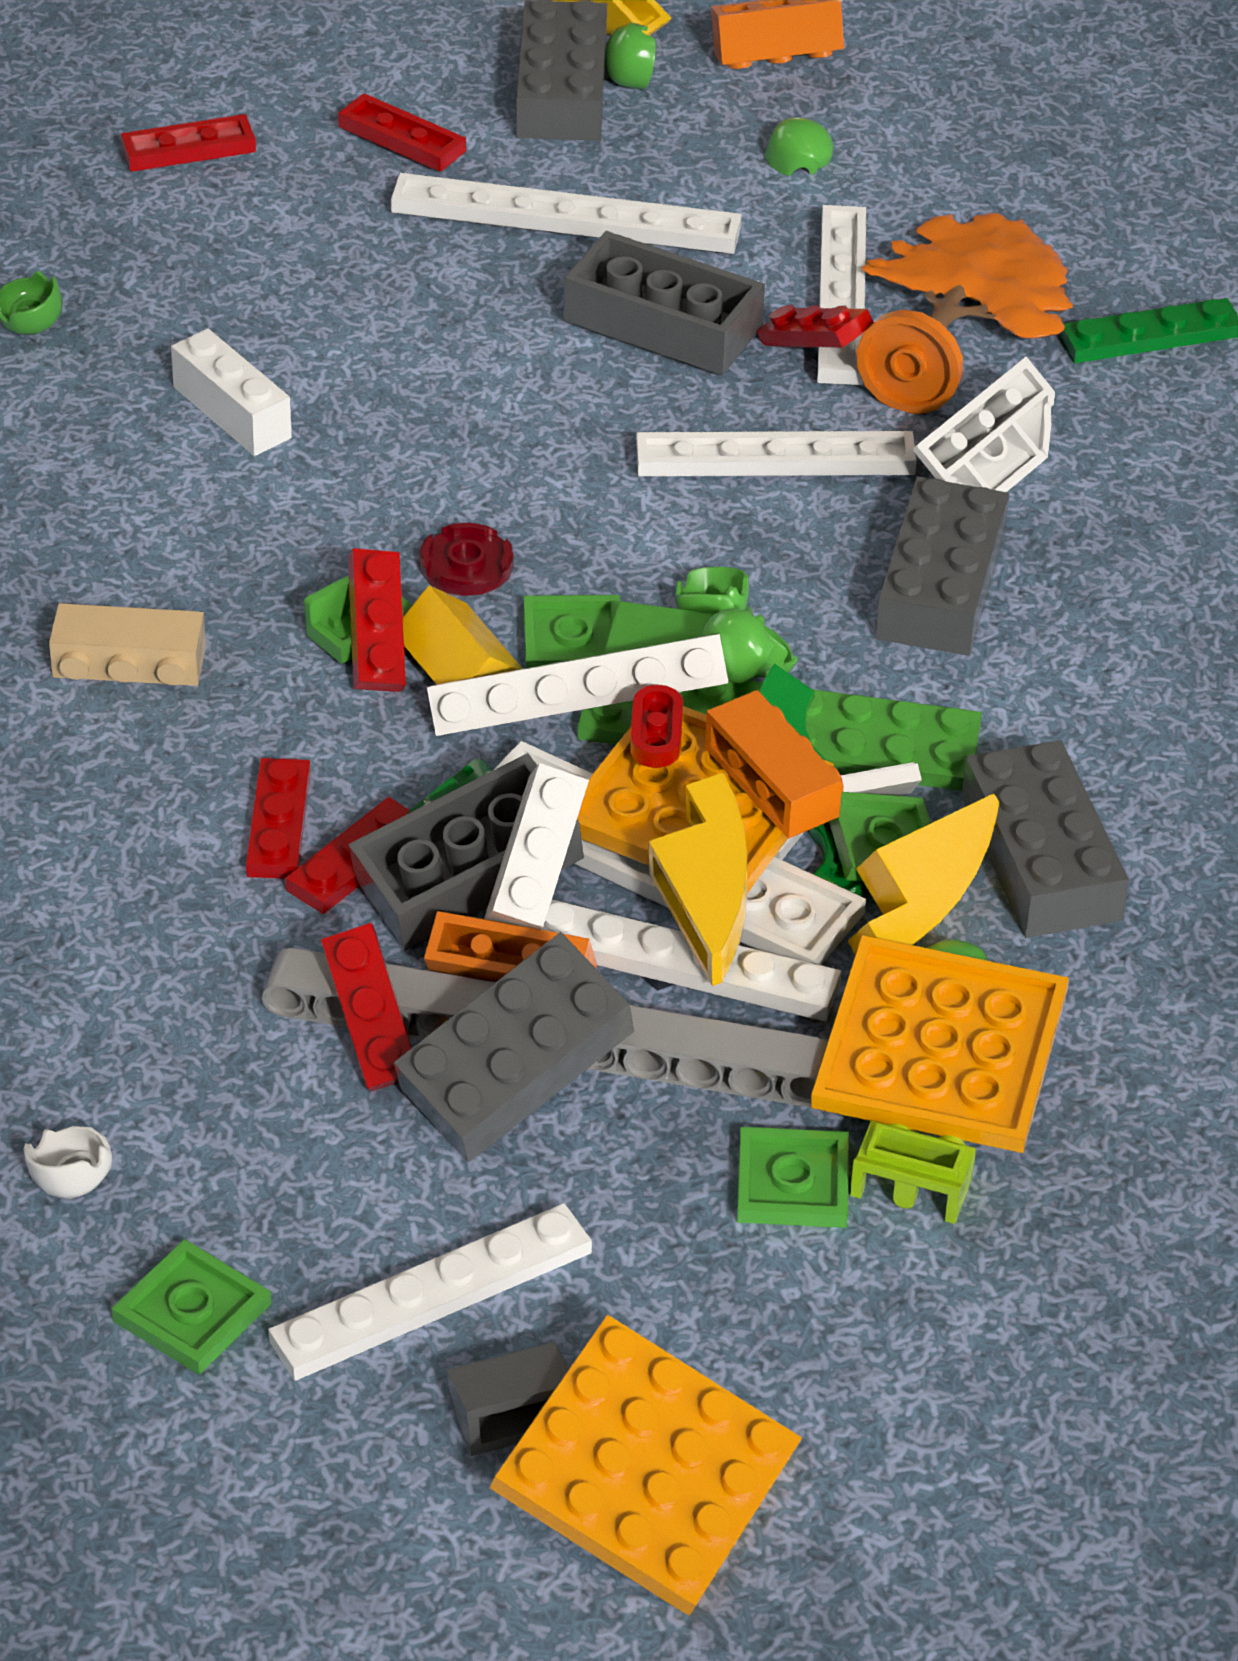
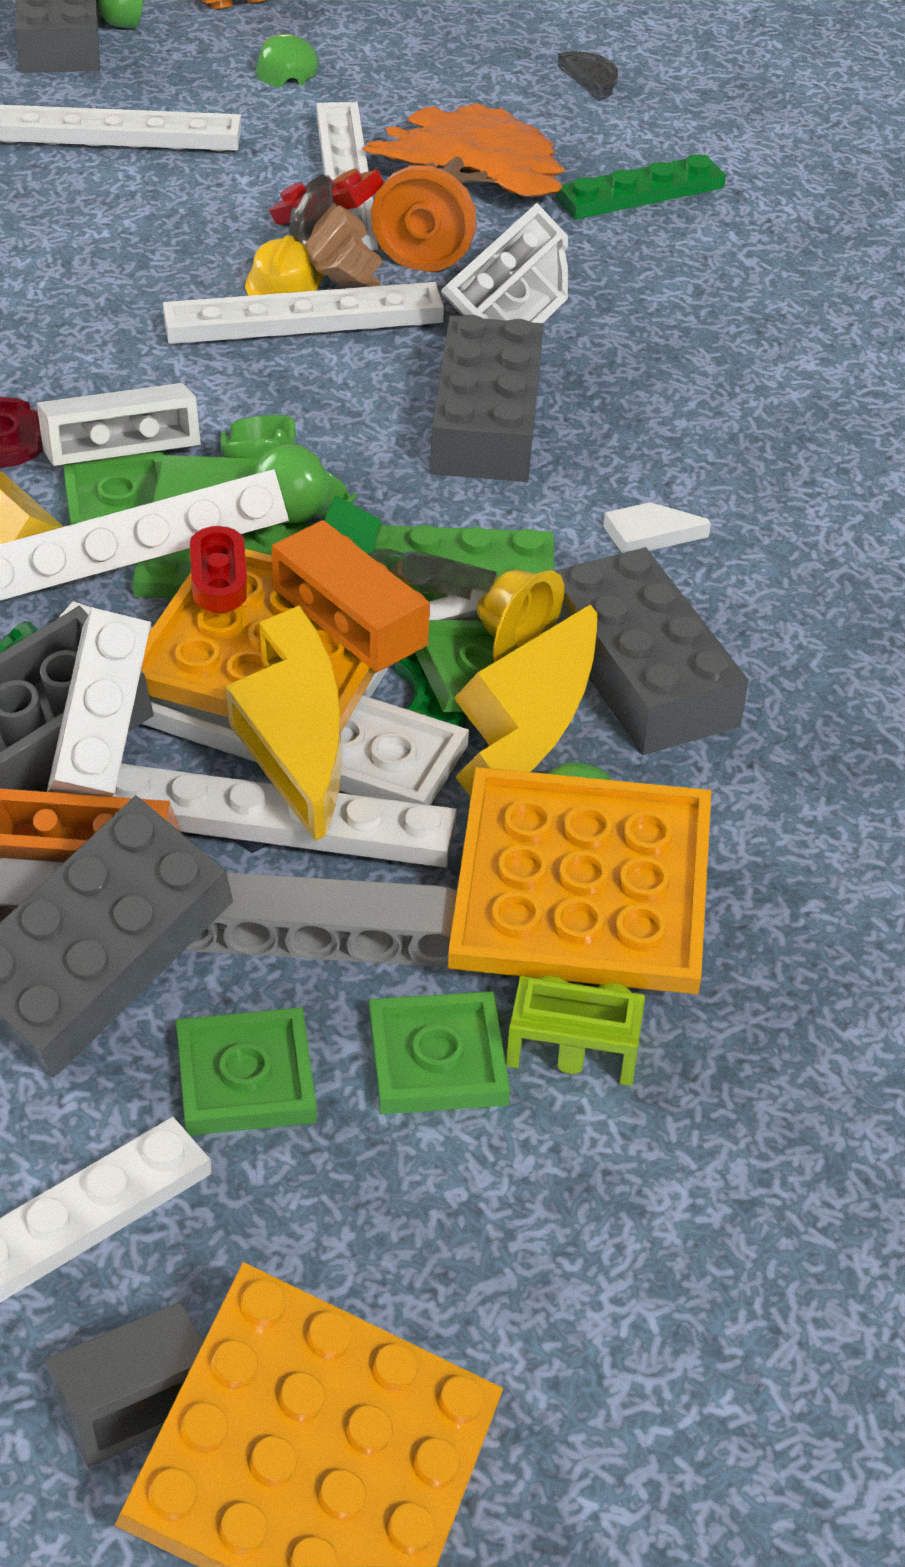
camera: 10 degrees left, 0 degrees up
(580, 563) = (118, 423): none -> white brick
(629, 1174) = (245, 1071): none -> bright green tile
(663, 302) = (175, 188): dark grey brick -> none
(764, 403) = (282, 268): none -> yellow piece
(797, 357) = (311, 208): none -> clear smoke tile
(820, 391) = (340, 252): none -> medium nougat hair
(852, 748) = (436, 573): none -> clear smoke plate
(930, 790) = (520, 608): none -> yellow piece
(1081, 715) = (653, 527): none -> white tile
(1127, 181) = (590, 71): none -> clear smoke tile

